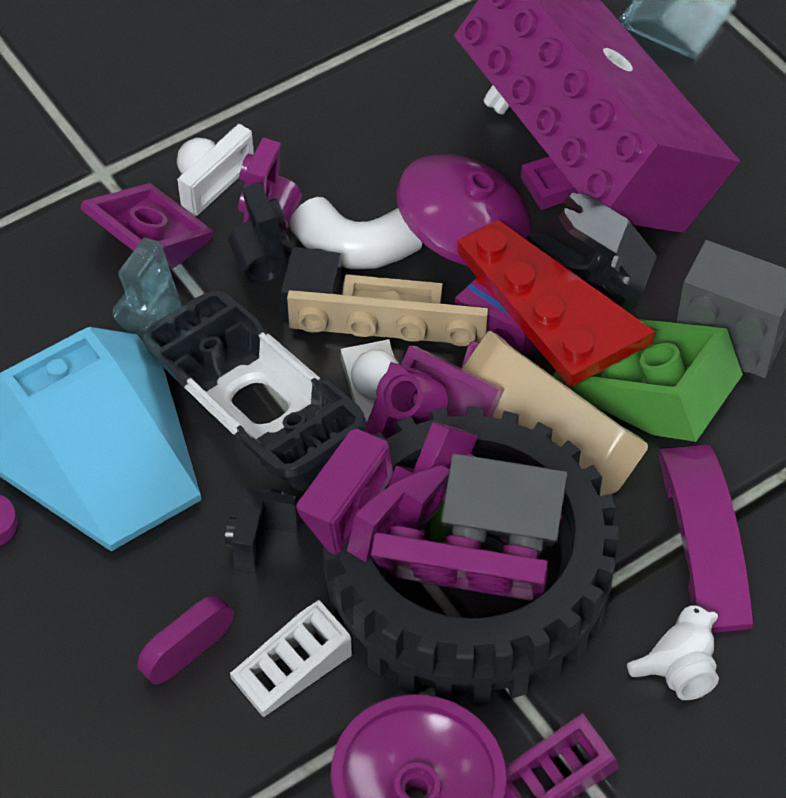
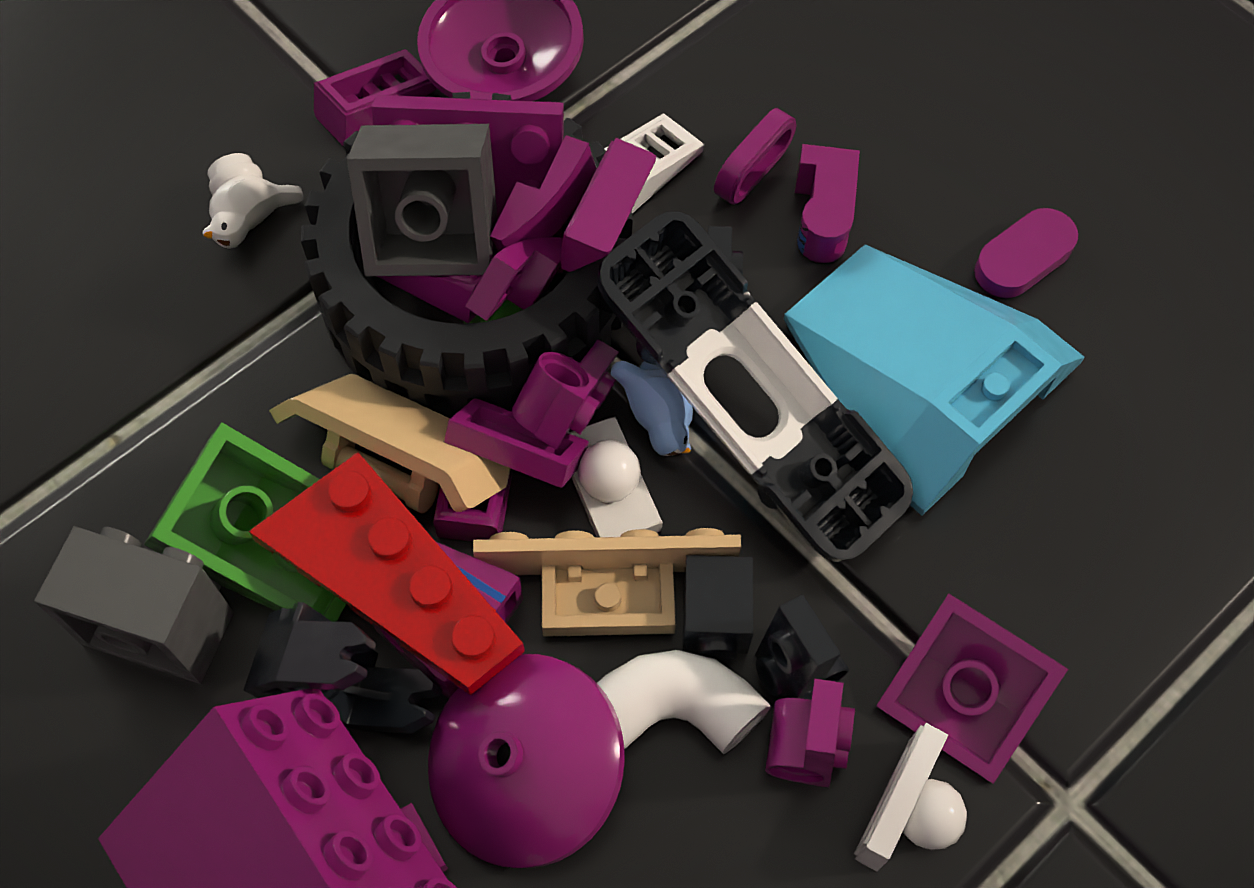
camera: 170 degrees right, 10 degrees up
(124, 594) = (827, 218): none -> magenta leg
(147, 288) = (927, 544): clear light blue plate -> none
(708, 535) = (207, 344): magenta slope -> none

